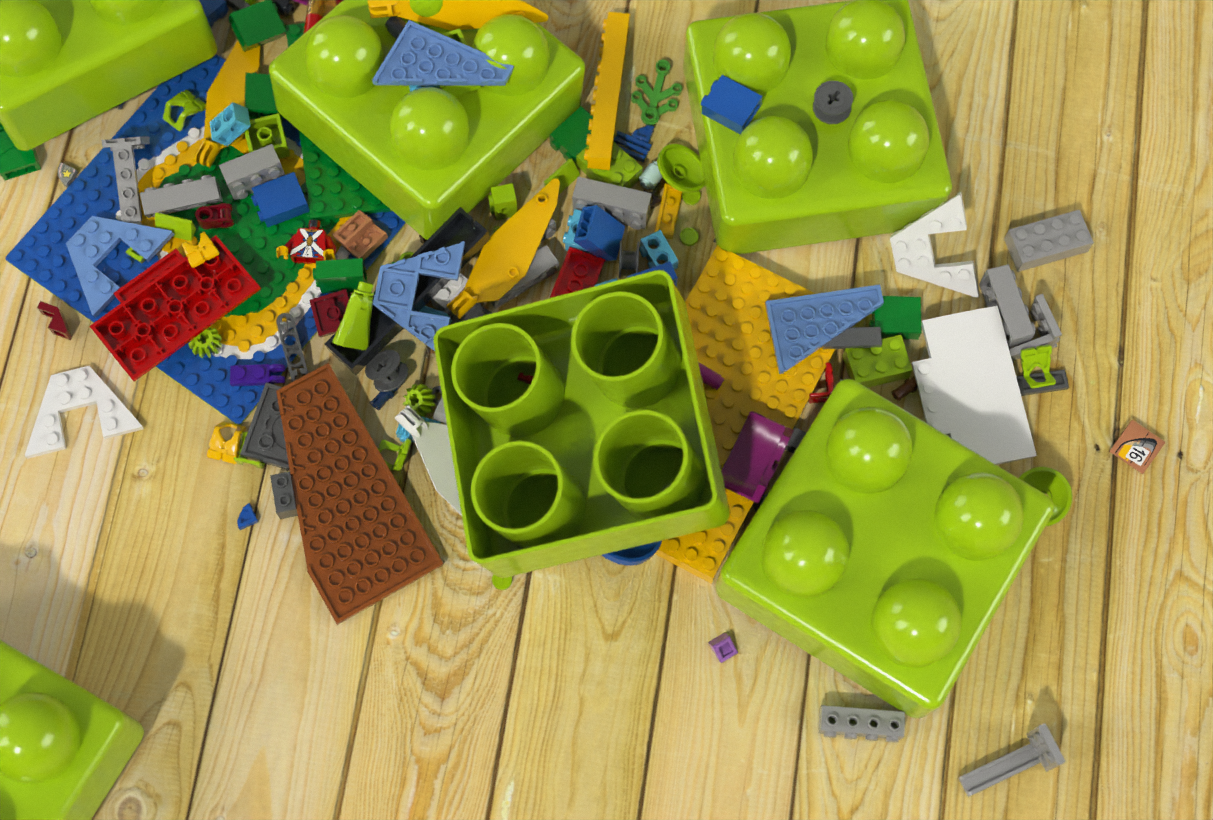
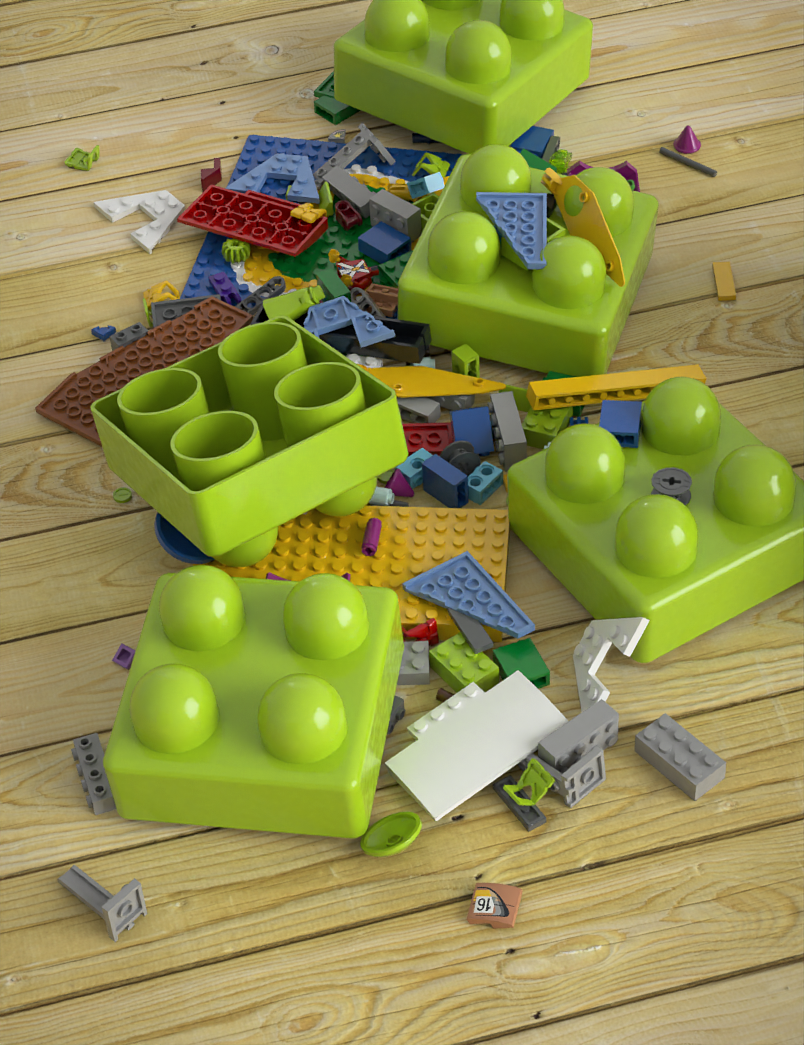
camera: 70 degrees right, 25 degrees down
(384, 255) = (365, 302): none -> light grey beam

